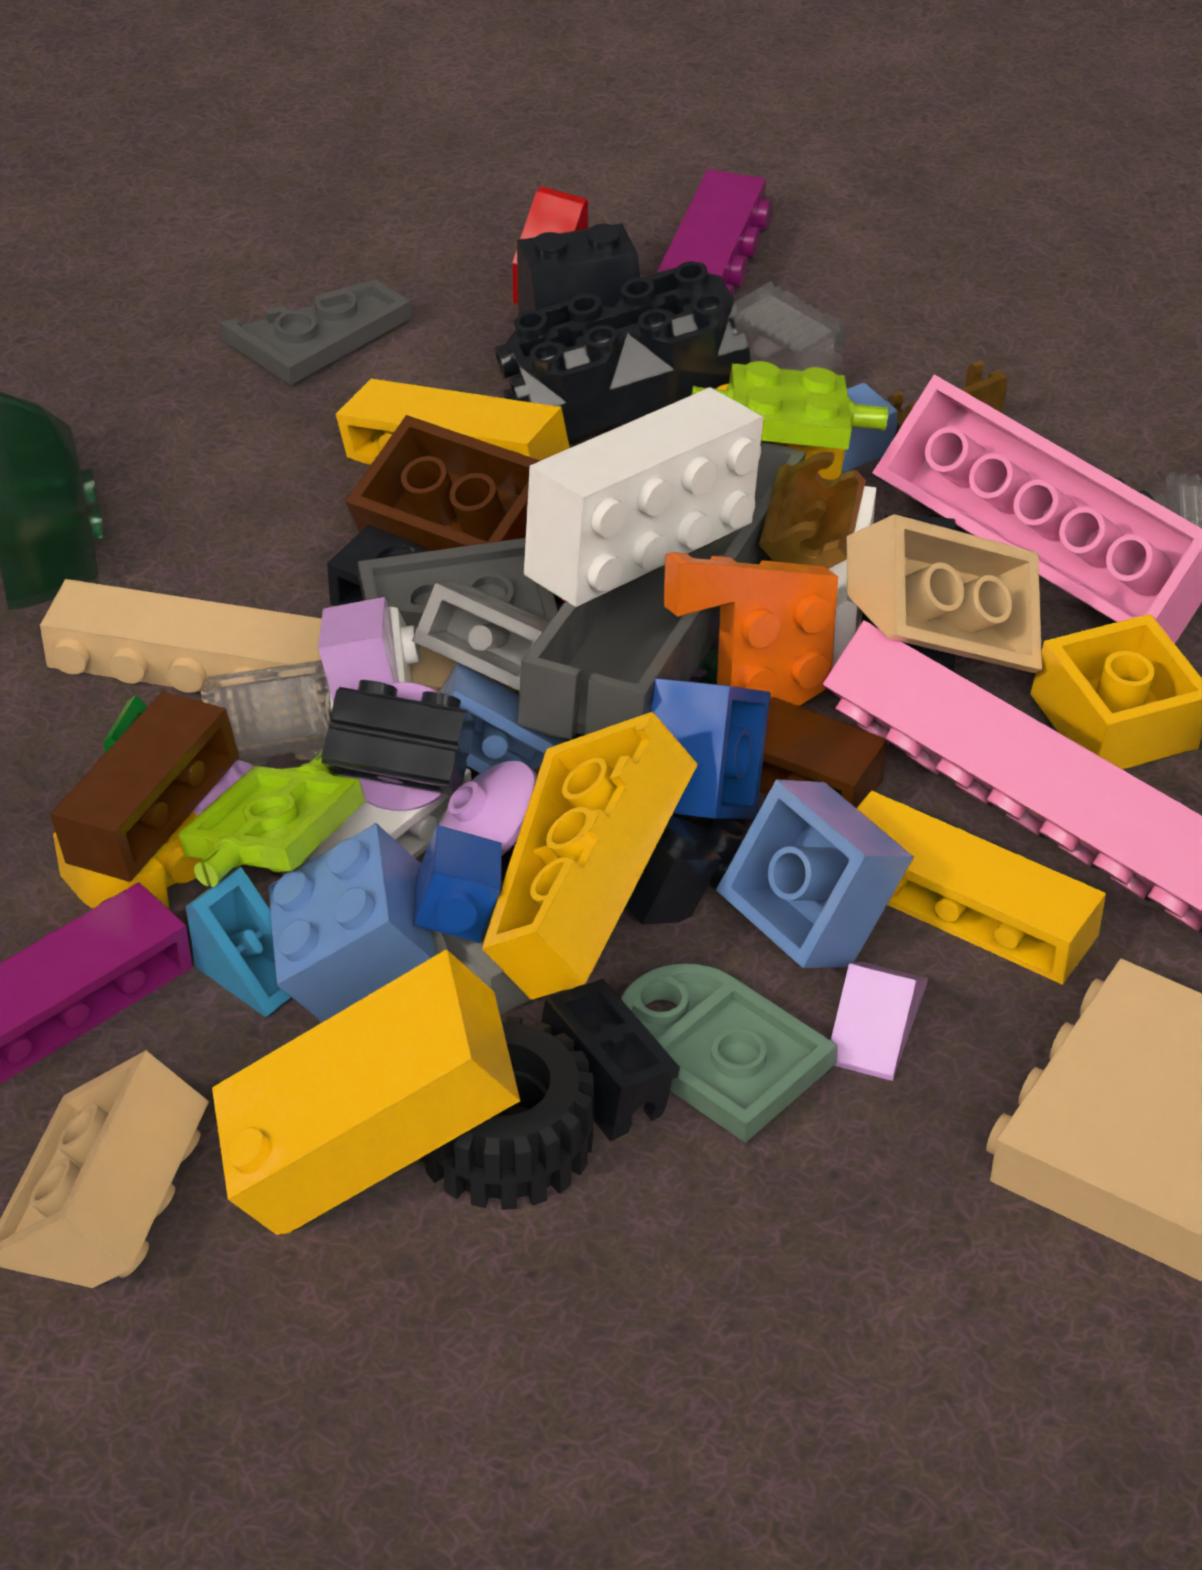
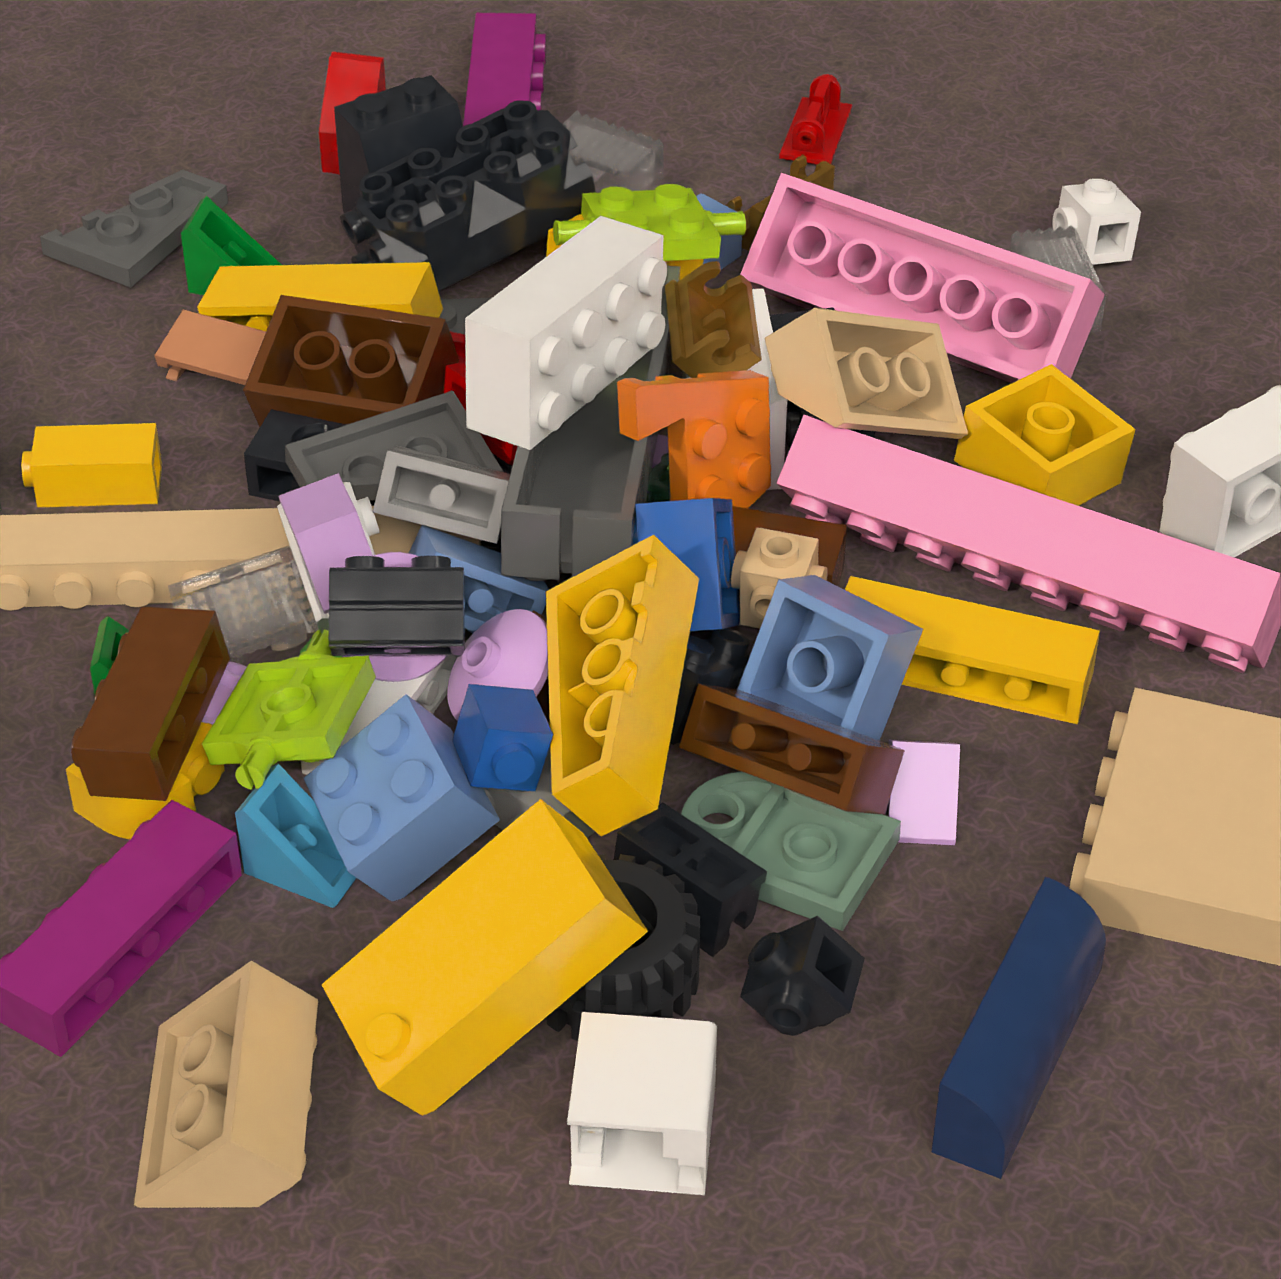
camera: 15 degrees left, 0 degrees up
(191, 549) = (94, 465): none -> yellow brick
(332, 454) = (209, 348): none -> nougat hinge
(378, 352) = (215, 241): none -> green slope
(478, 1268) = (642, 1103): none -> white piece
(678, 1179) = (802, 977): none -> black brick
(748, 952) = (792, 749): none -> reddish brown brick
(792, 757) = (770, 558): none -> tan brick
(877, 1278) = (1019, 1031): none -> dark blue brick
(1016, 332) = (817, 123): none -> red hinge

